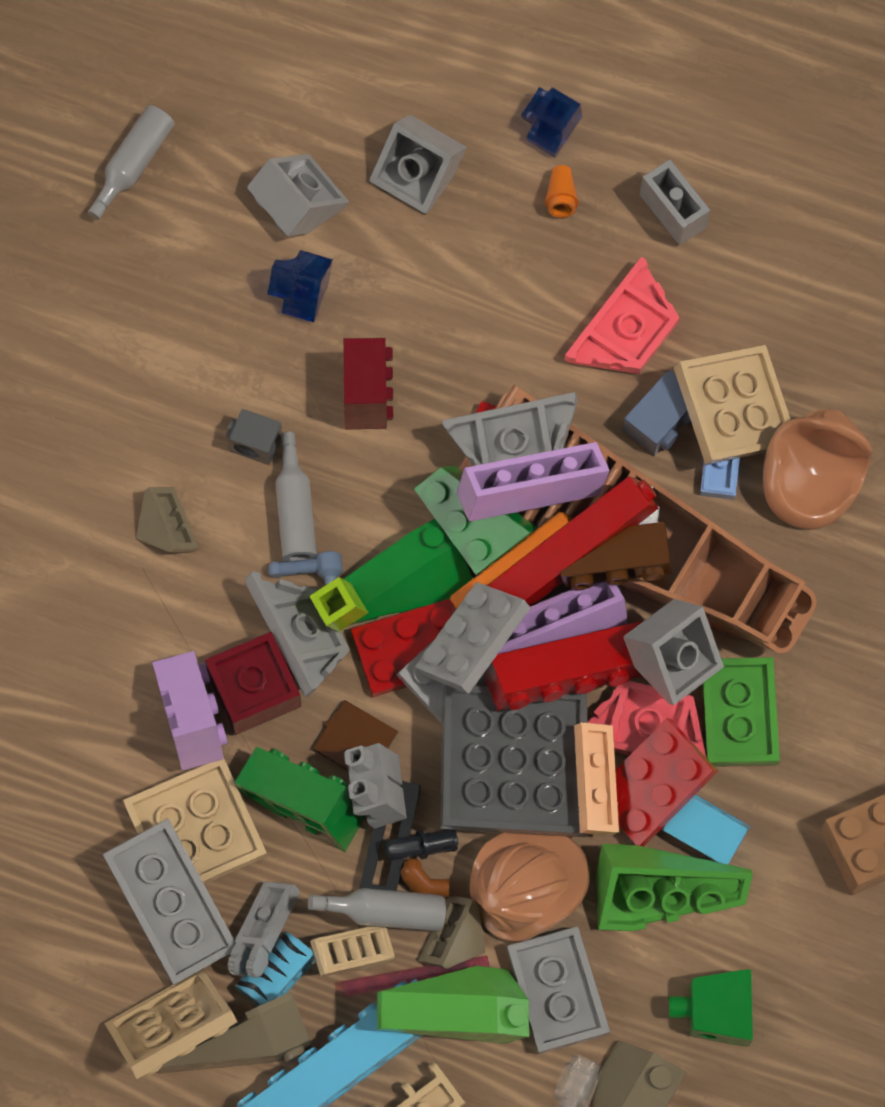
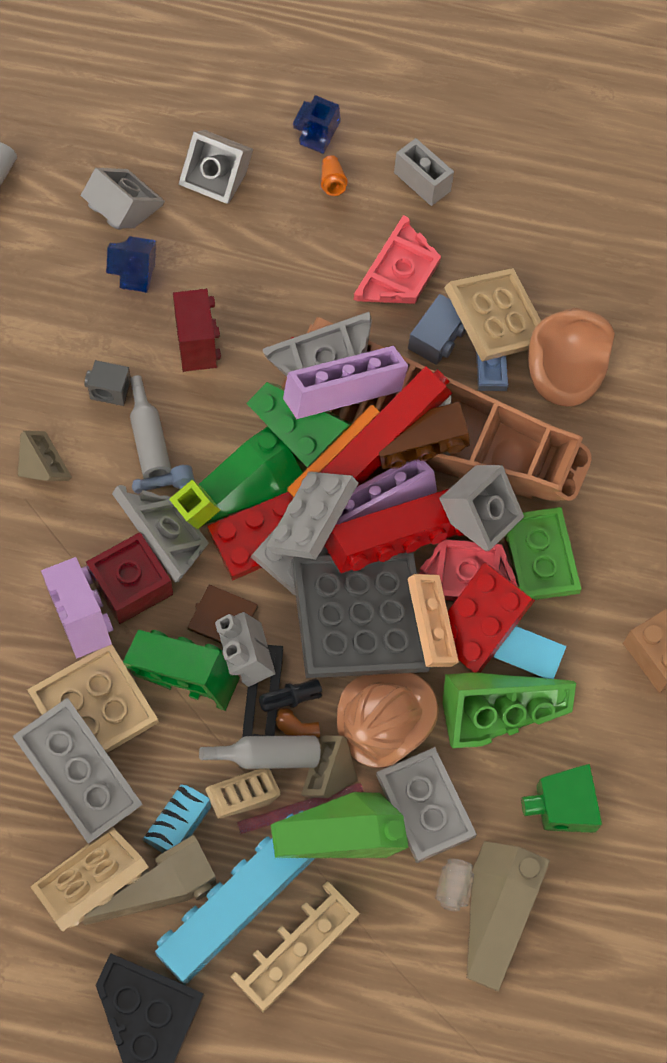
camera: 10 degrees left, 5 degrees down
(262, 928) = (161, 784): light grey hinge -> none

